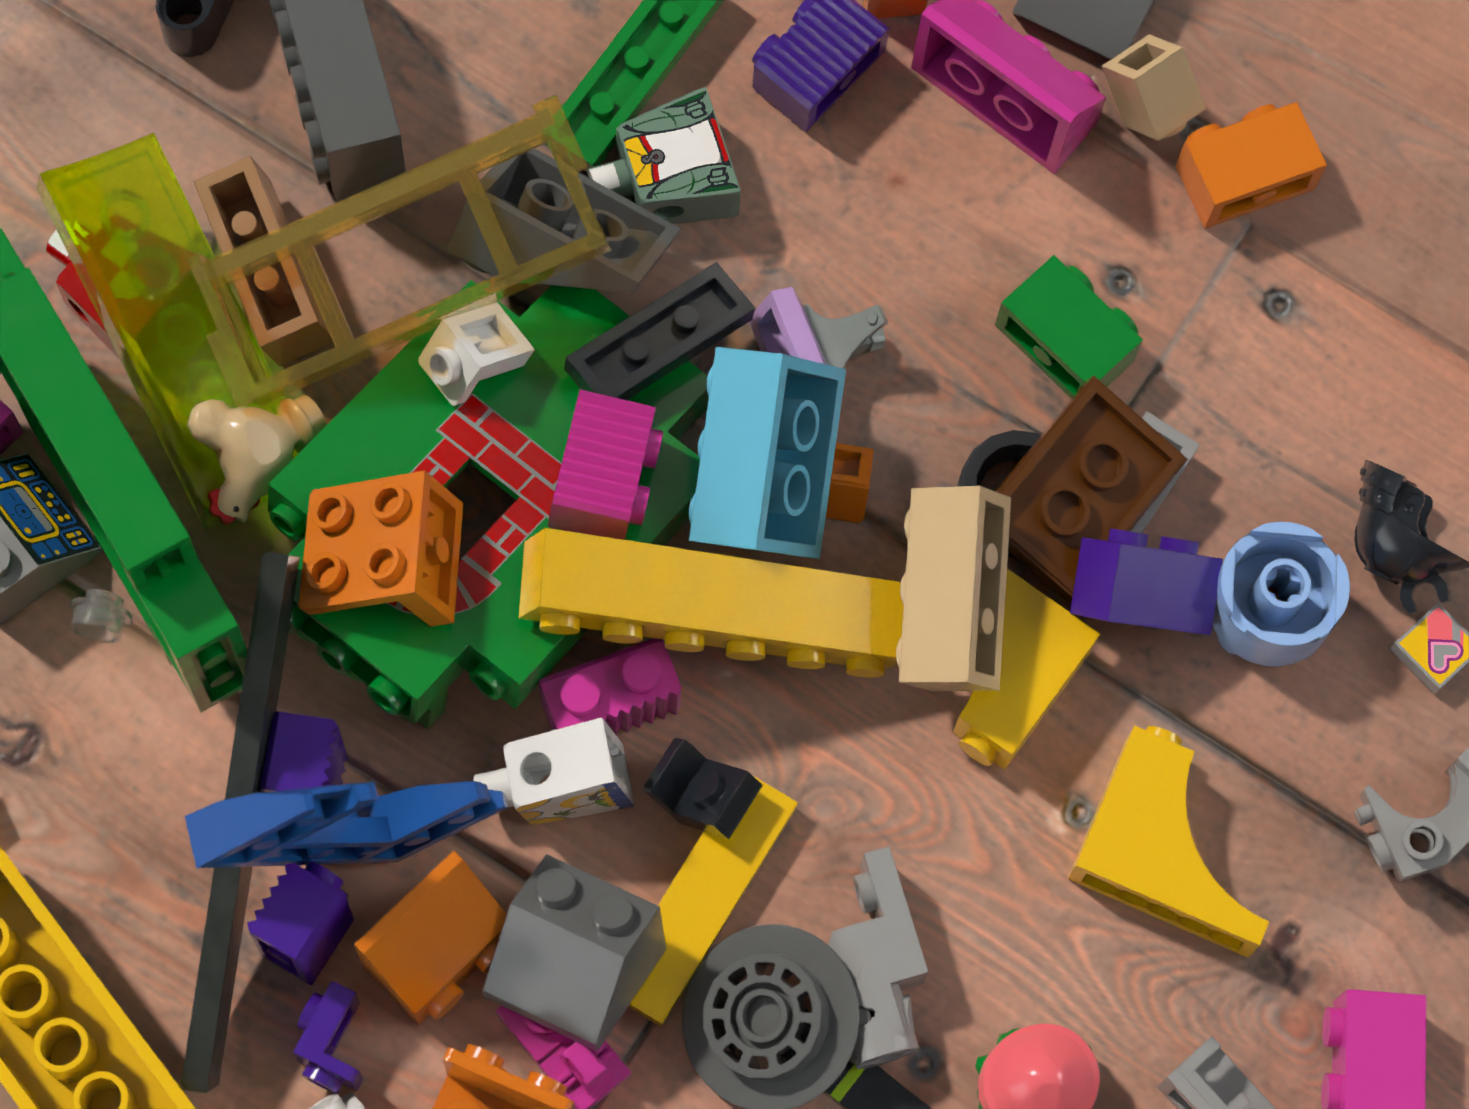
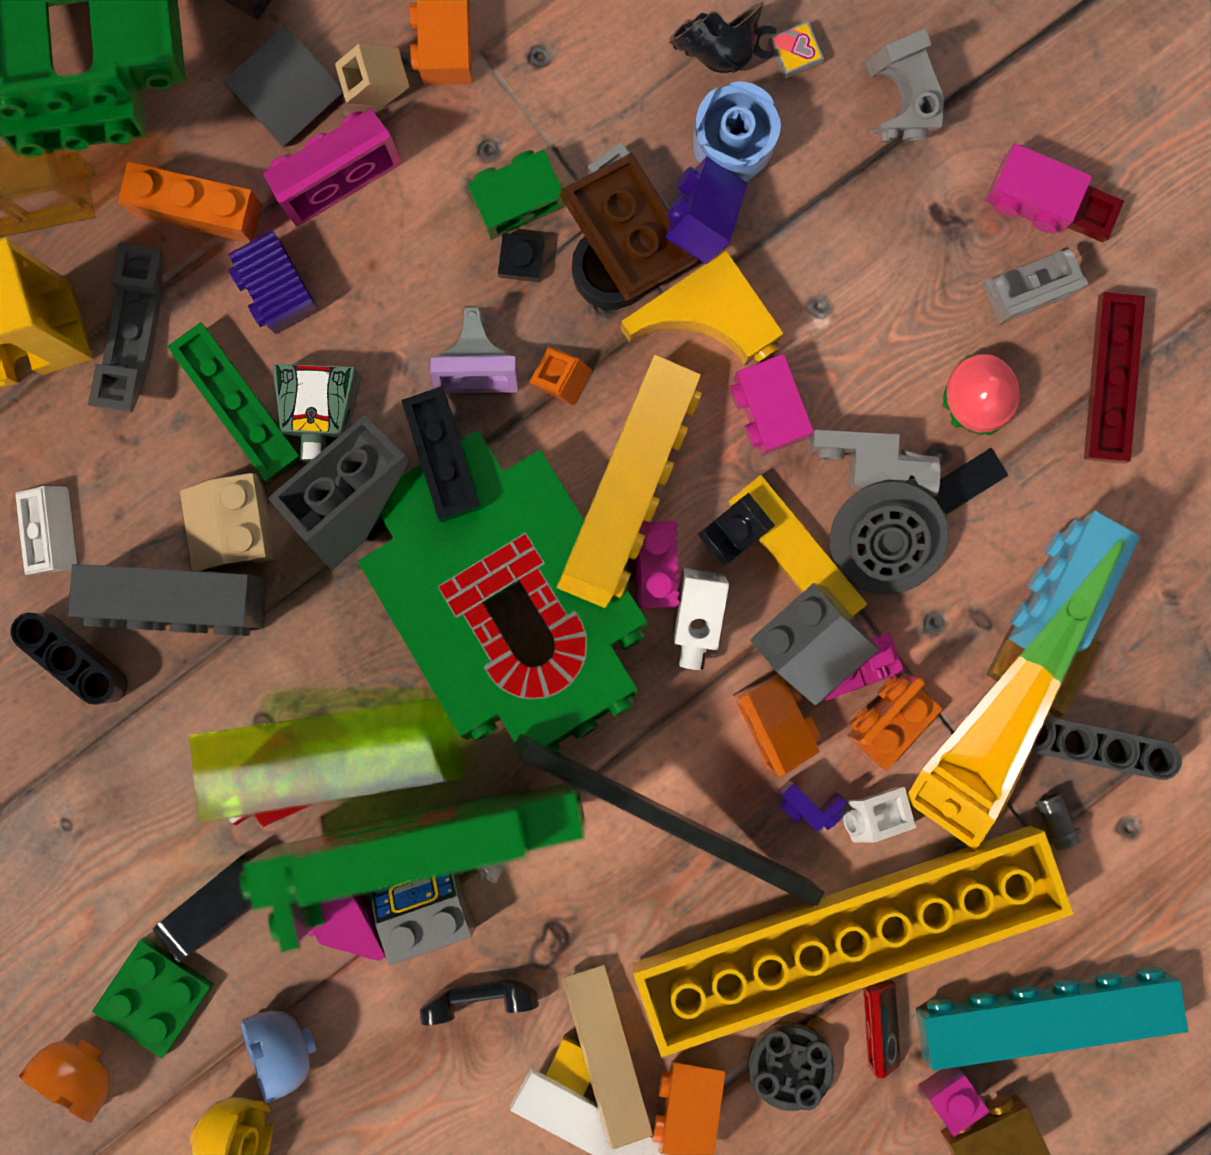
camera: 65 degrees left, 15 degrees up
(231, 341) = (363, 728): clear yellow piece -> none
(251, 448) = (427, 736): tan animal -> none
(277, 298) = (294, 688): medium nougat brick -> none
(302, 753) = (646, 772): dark purple brick -> none
(302, 920) = (740, 802): dark purple brick -> none
(335, 824) = (695, 742): blue wedge -> none
(383, 546) = (532, 679): orange bracket -> none
(462, 98) = (228, 523): none -> tan slope
(473, 349) = (413, 576): white bracket -> none
(603, 465) = (521, 520): dark pink brick -> none
(766, 452) = (544, 414): medium azure brick -> none
(904, 780) = (771, 405): none -> dark pink brick
(954, 589) = (674, 329): tan brick -> none
(984, 370) = (521, 257): none -> black plate
(1145, 852) = (856, 274): yellow arch -> none

